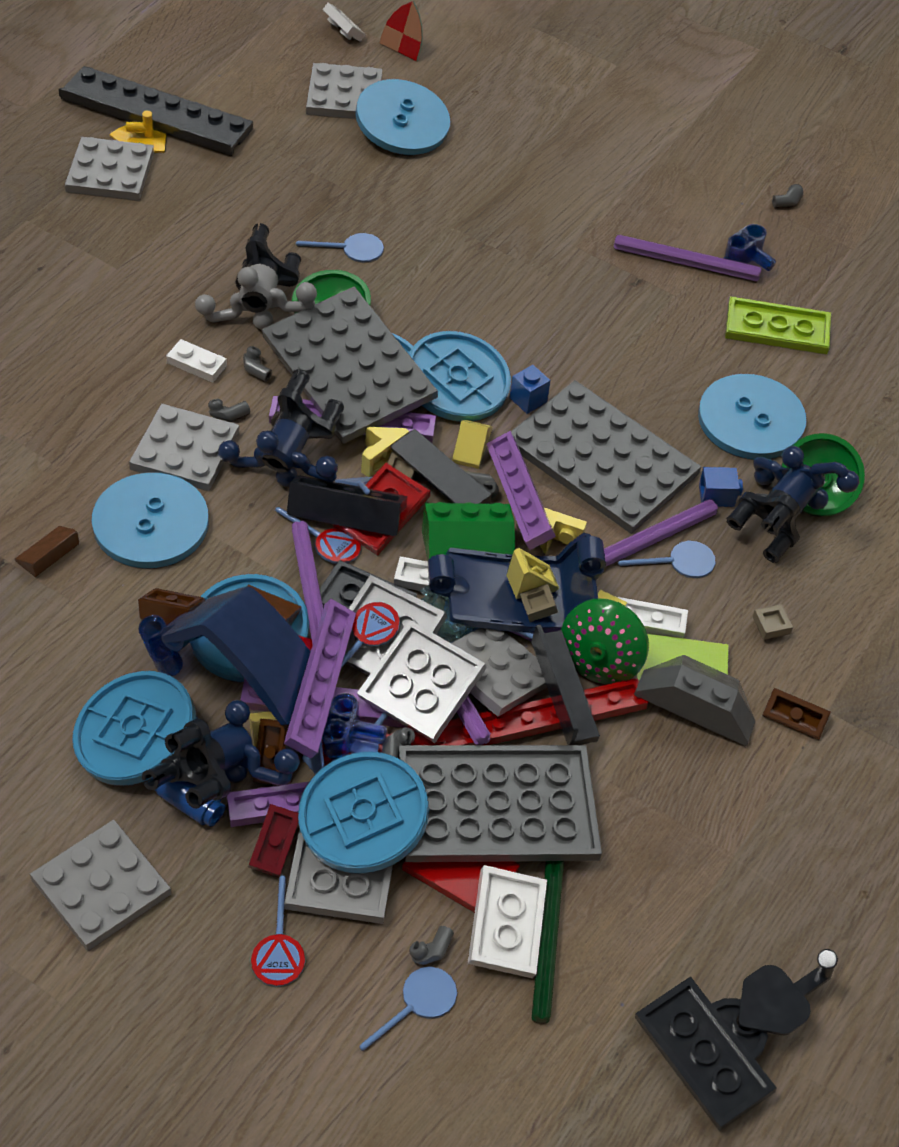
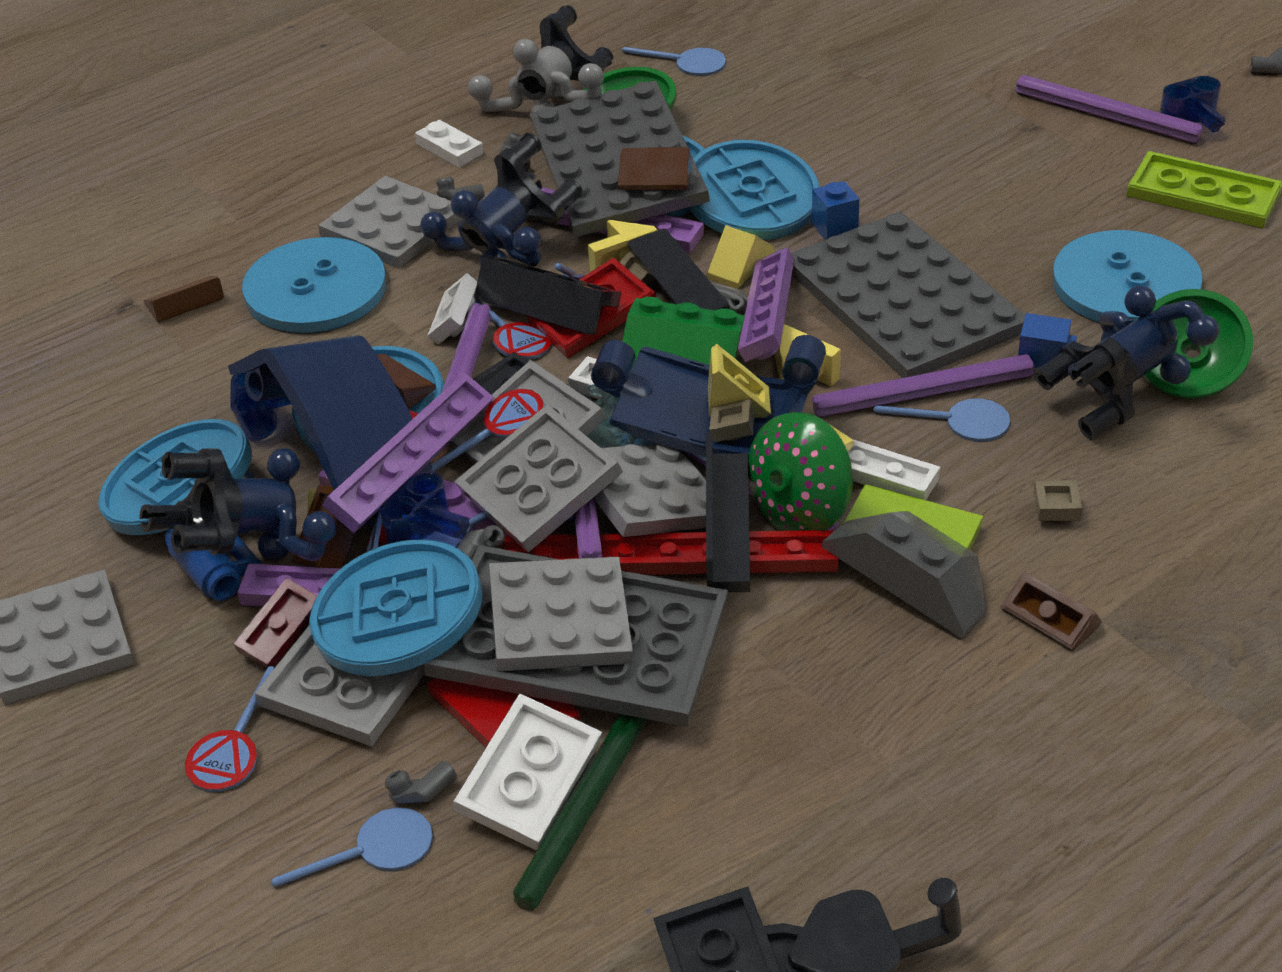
camera: 25 degrees right, 10 degrees down
(276, 528) = (452, 309): none -> white plate
(394, 379) = (654, 168): none -> reddish brown slope
(483, 793) = (559, 614): none -> light grey plate

